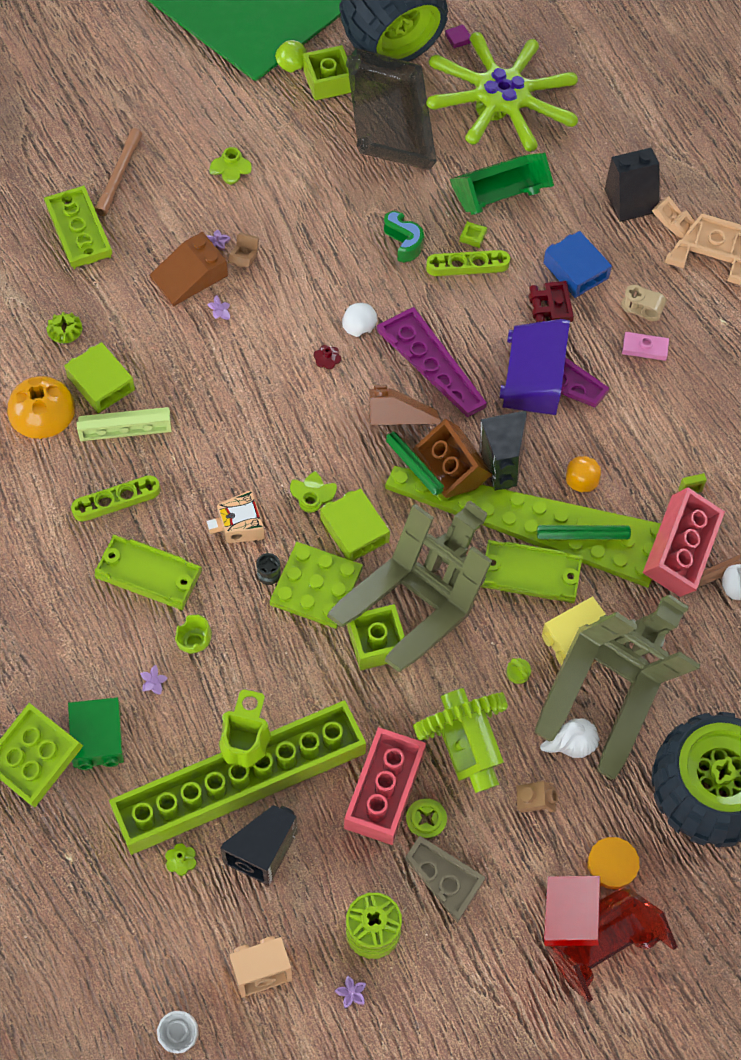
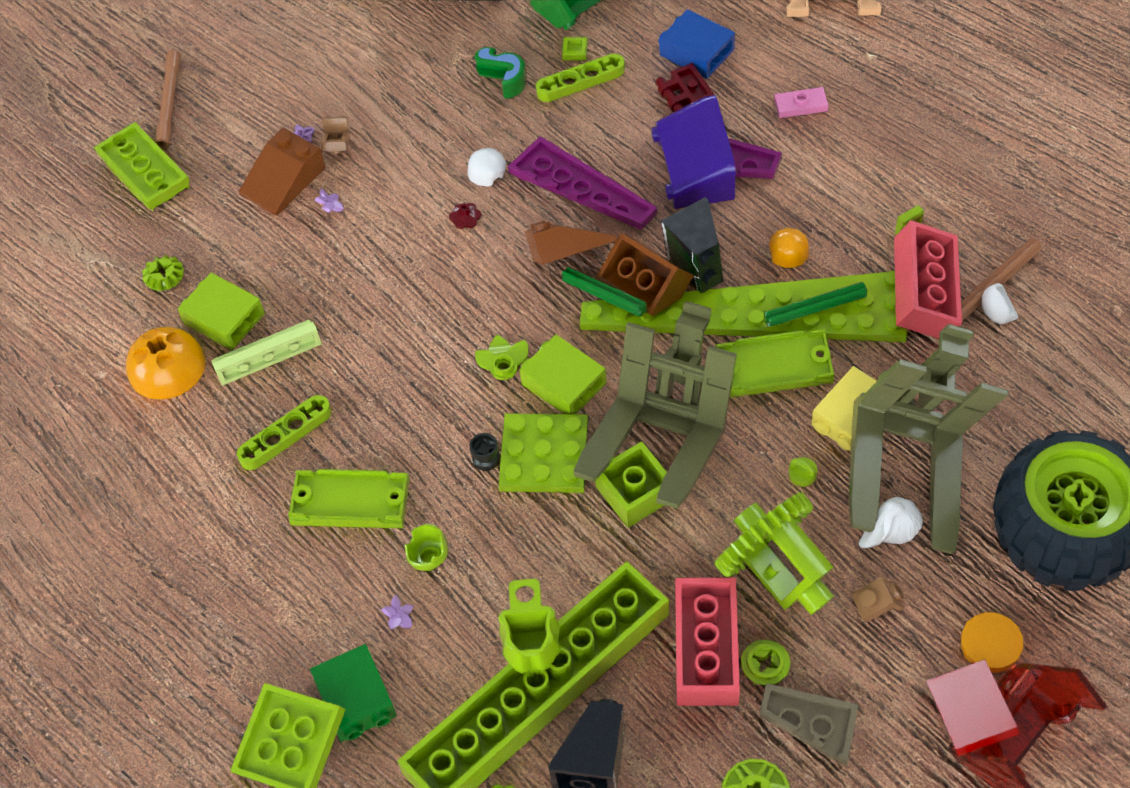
camera: 10 degrees left, 5 degrees down
(230, 165) = (288, 57): lime plate -> none
(238, 519) = (431, 410): torso -> none
(645, 303) = (784, 60): tan piece -> none

